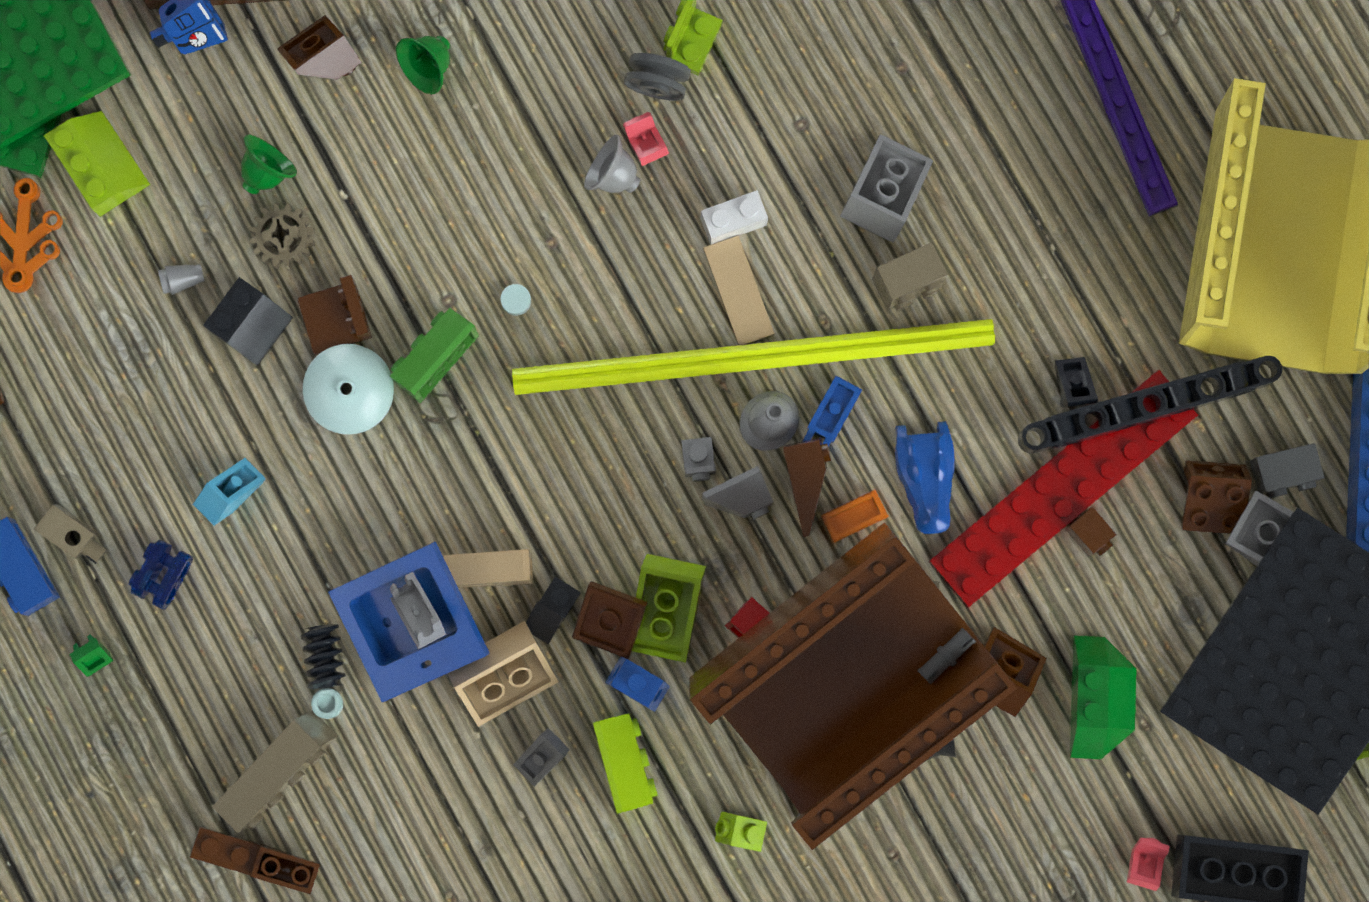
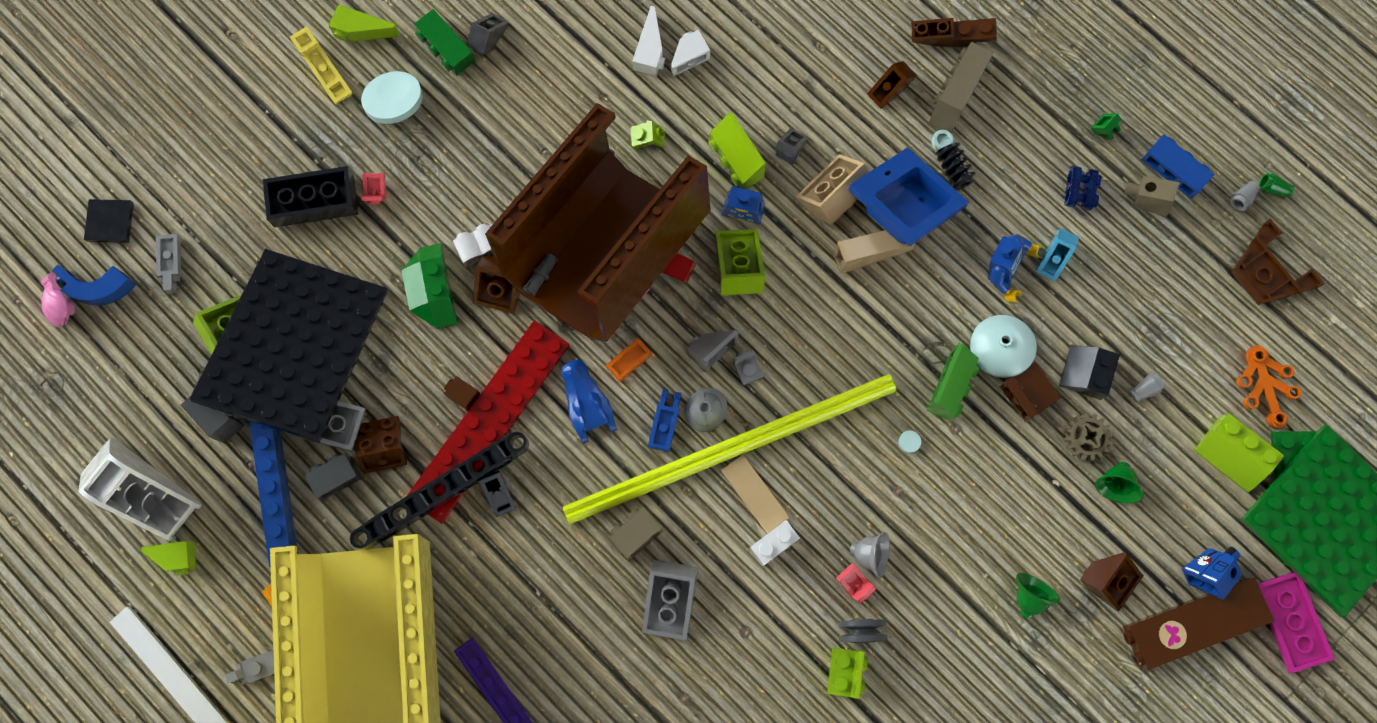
camera: 170 degrees right, 5 degrees down
(302, 499) = (1006, 262): none -> blue torso
(370, 806) = (892, 83): none -> reddish brown slope
(416, 612) = (905, 200): light grey hinge -> none
(552, 610) = (815, 241): black slope -> none
(609, 620) = (774, 241): reddish brown tile -> none
(807, 472) = (671, 378): reddish brown slope -> none
(1019, 736) = (473, 245): none -> white brick

